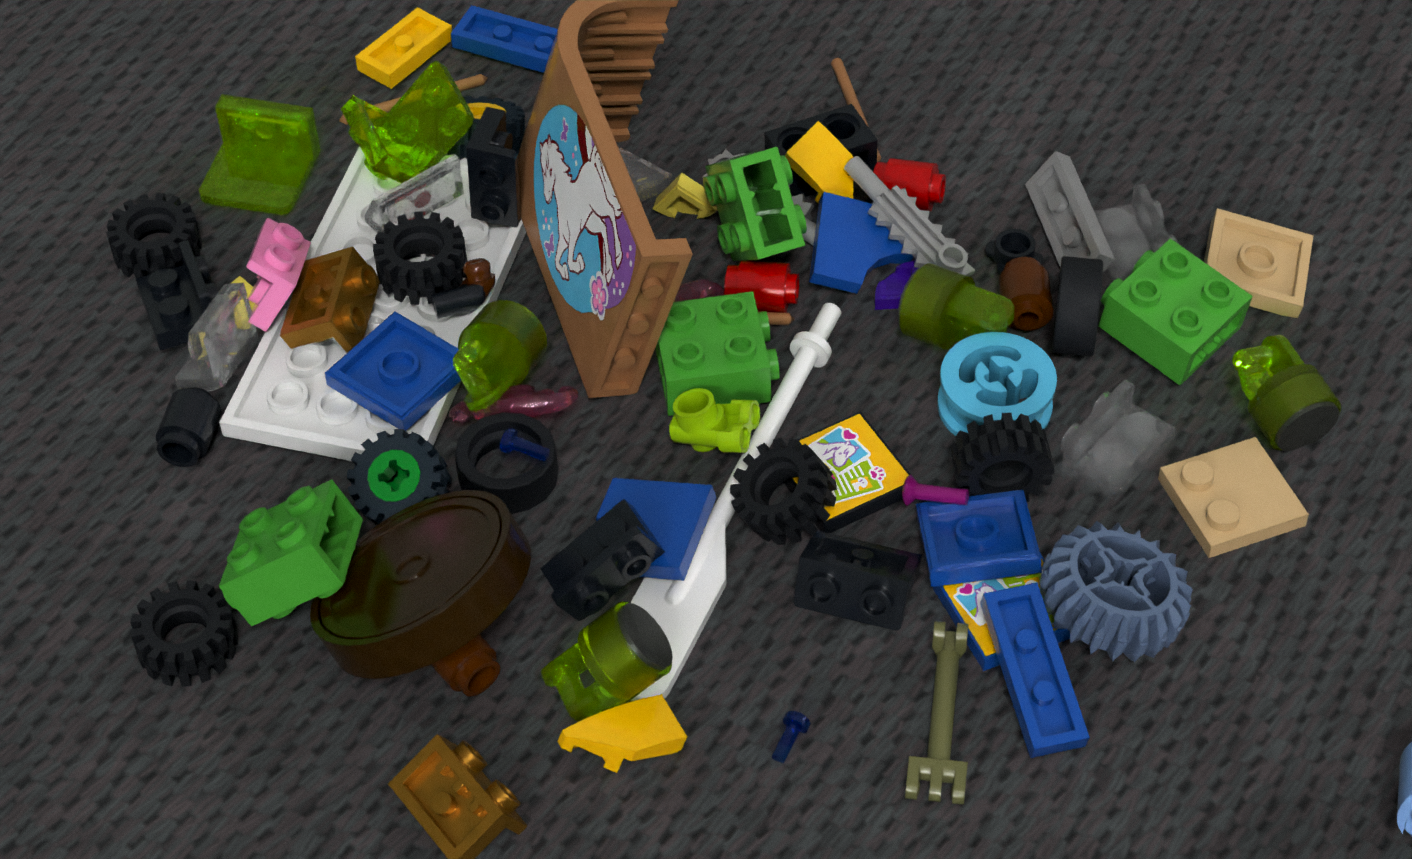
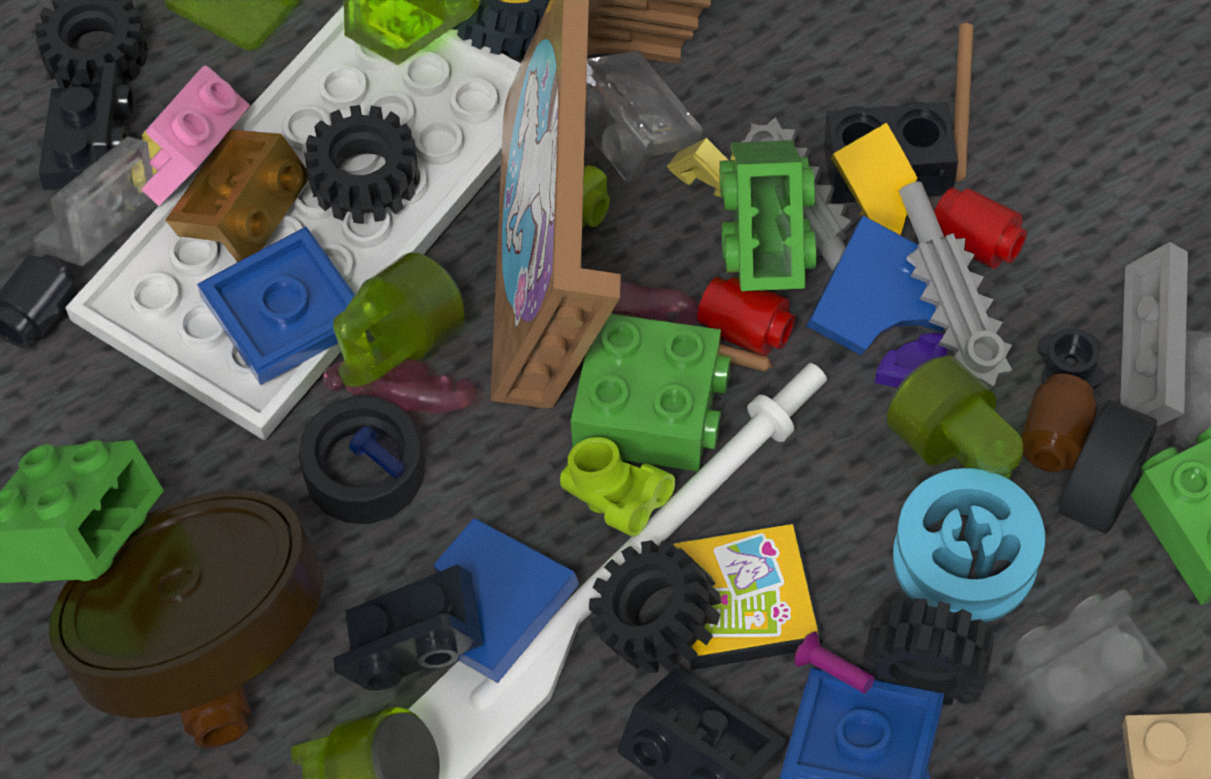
camera: 20 degrees right, 10 degrees up
(419, 477) = (249, 456): black wheel -> none
(421, 193) = (391, 81): clear slope -> none
(471, 292) = (402, 227): black arm -> none
(493, 171) = (478, 77): black bracket -> none

